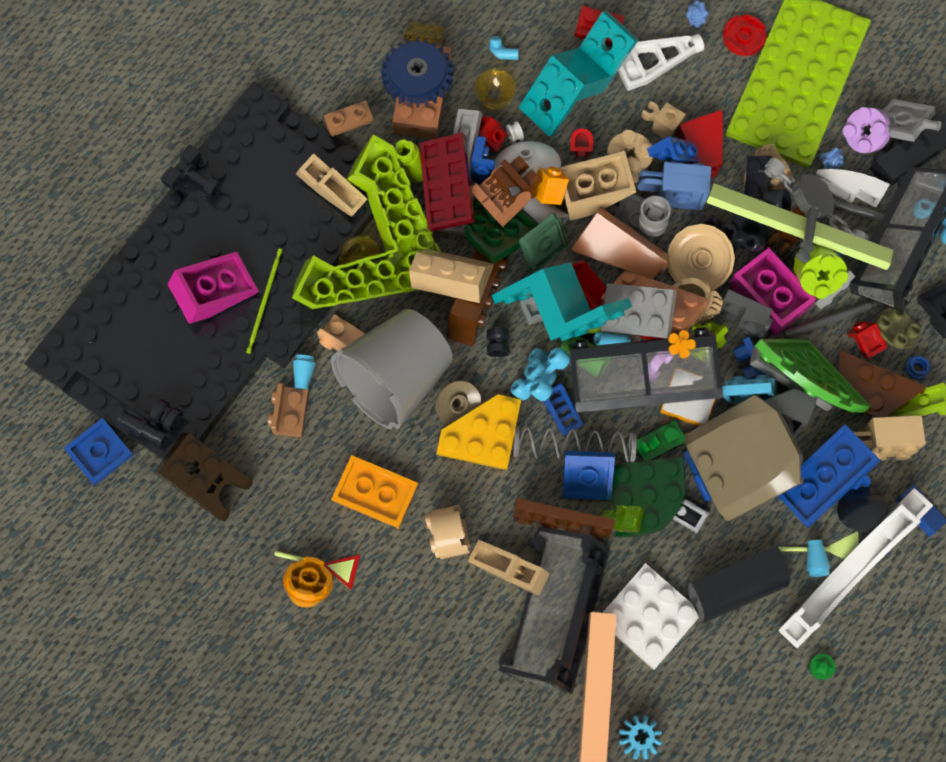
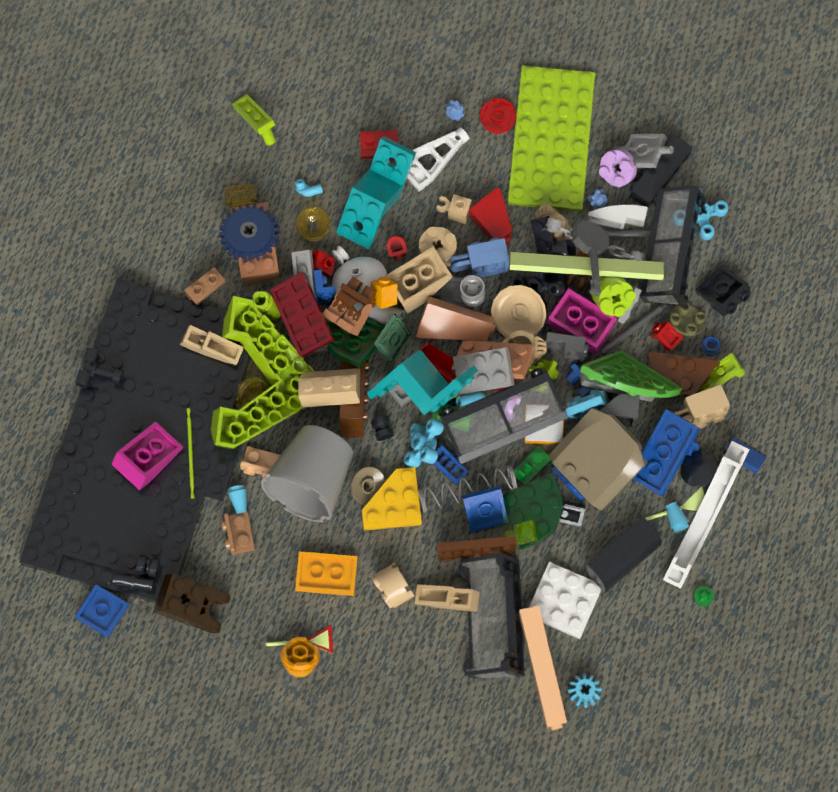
camera: 15 degrees left, 0 degrees up
(674, 150) = (472, 232): blue bracket -> none
(681, 344) = (524, 387): light orange plant -> none

